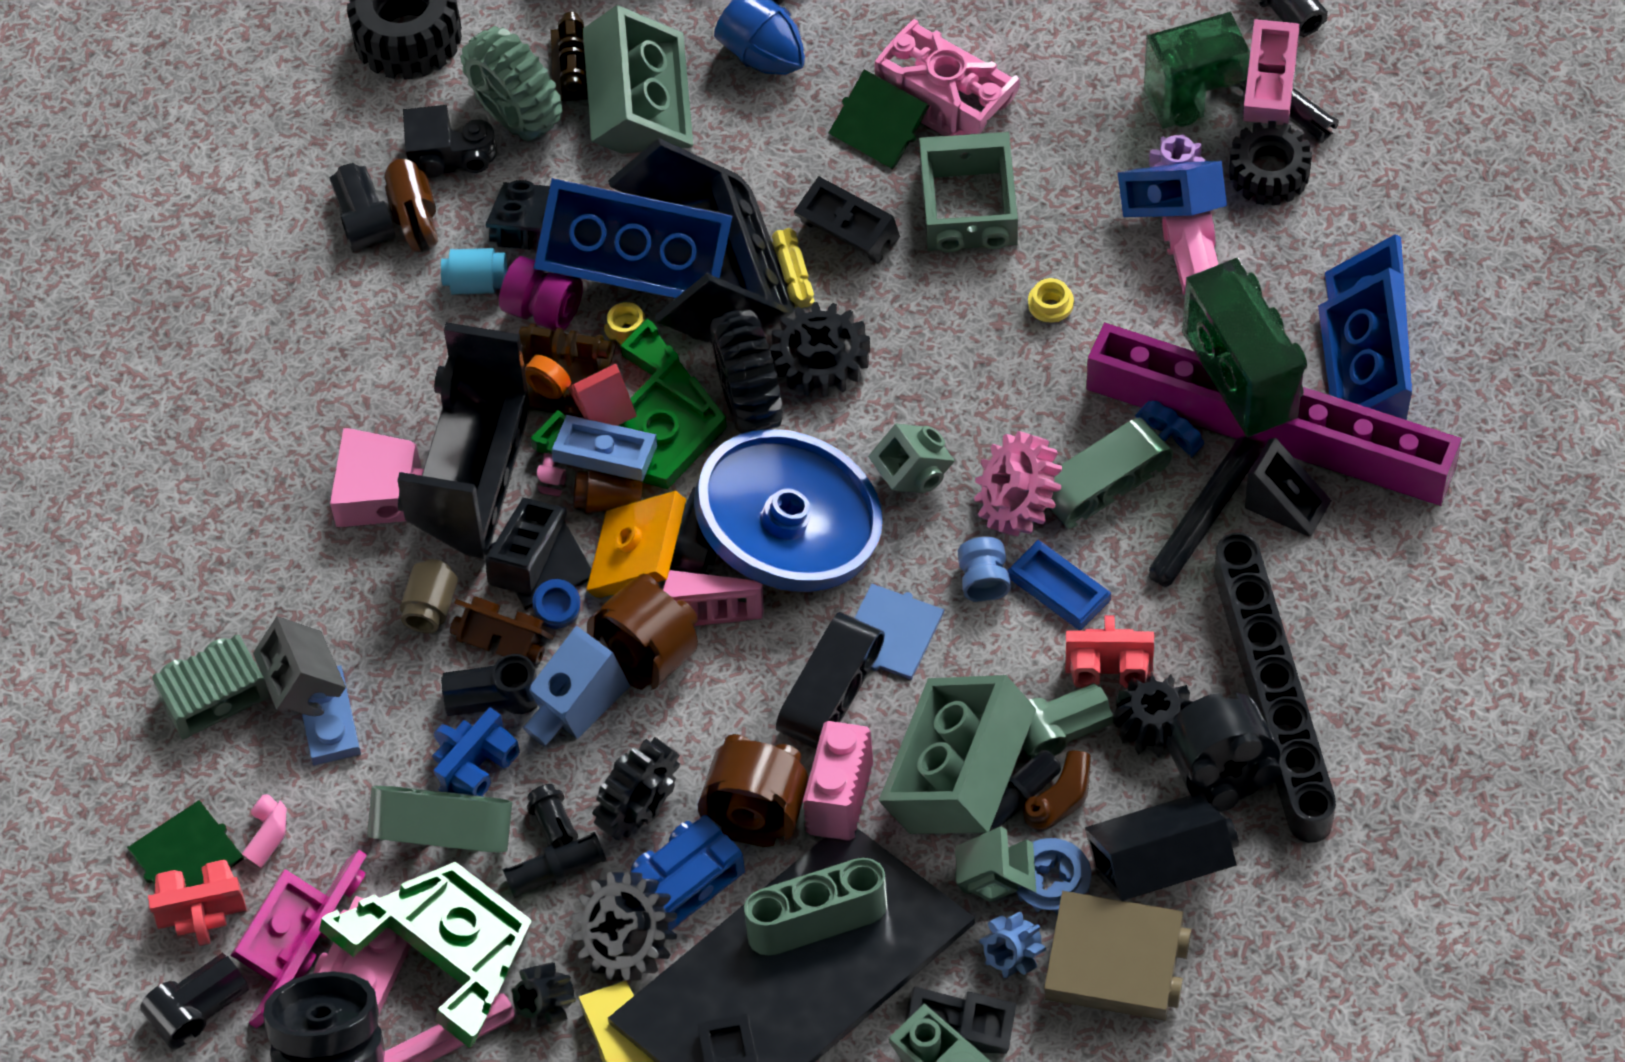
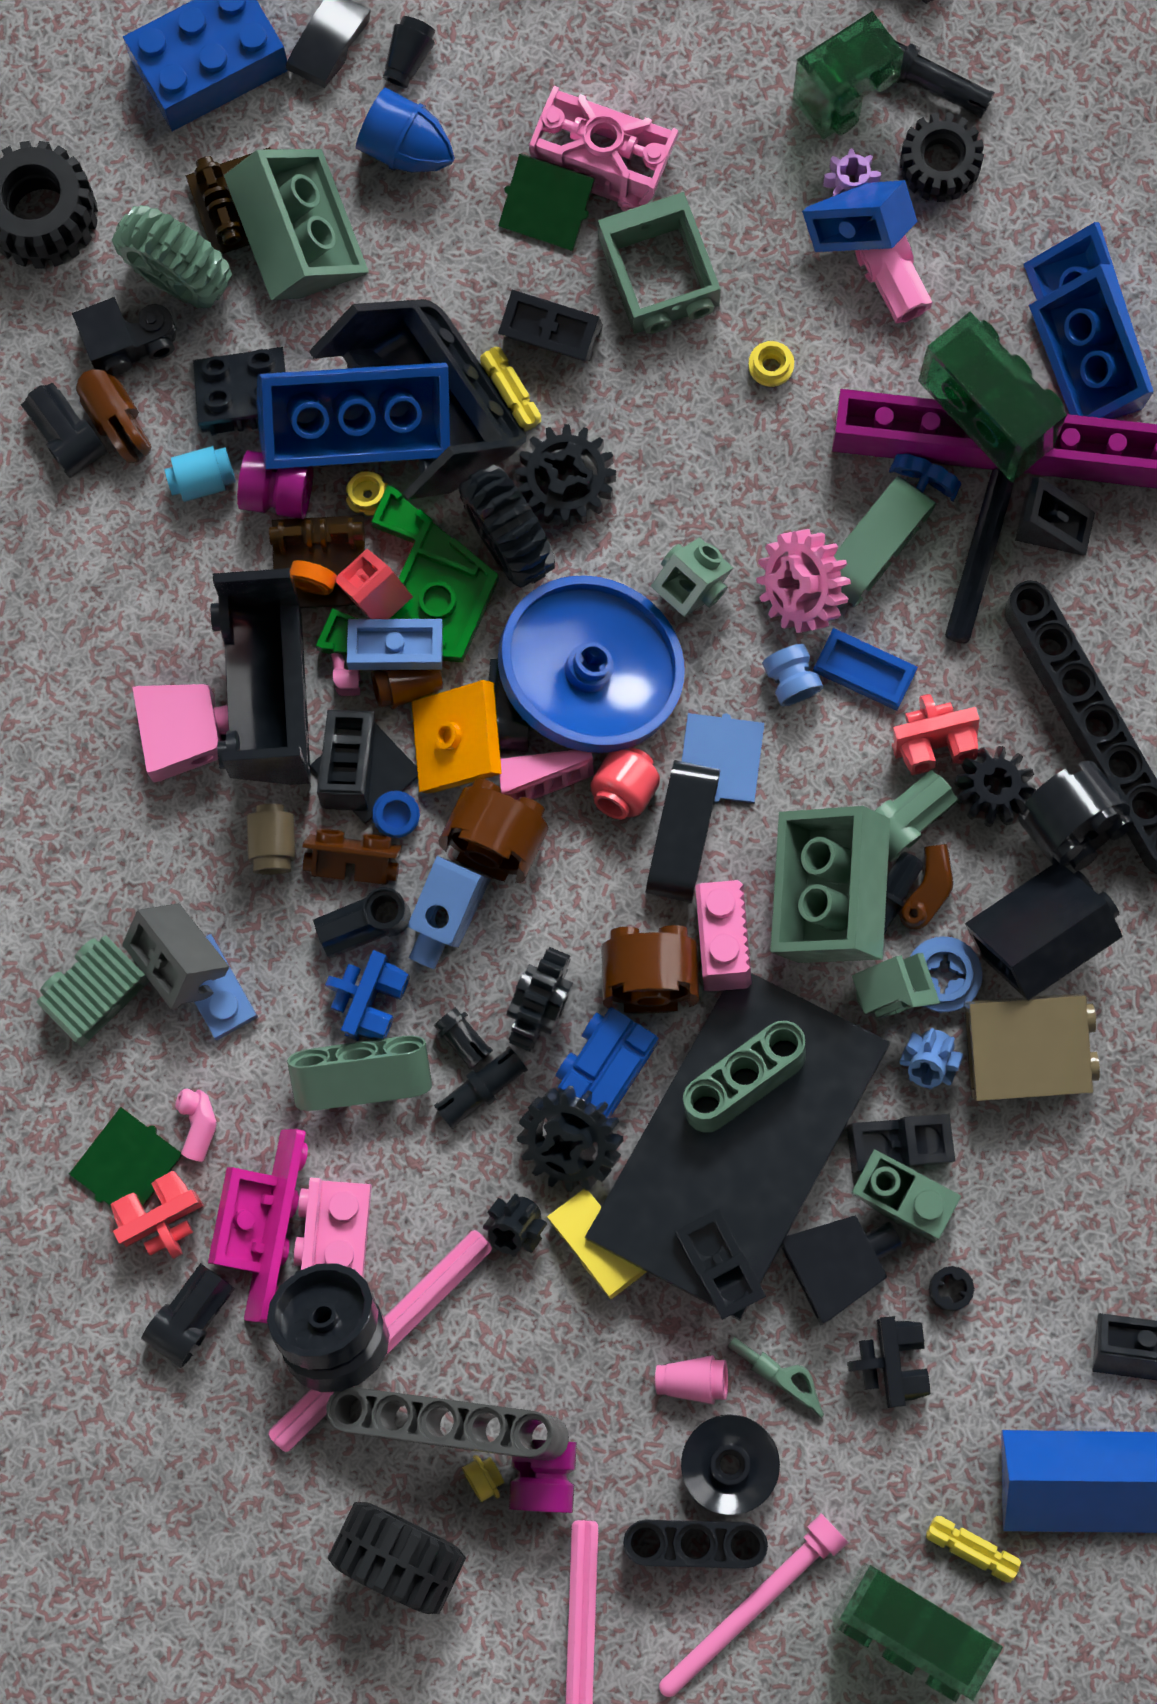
camera: 15 degrees left, 20 degrees up
(454, 925) = (414, 1180): wing -> none
(787, 625) = (625, 783): none -> coral head
(1271, 71) = (926, 65): bright pink brick -> none

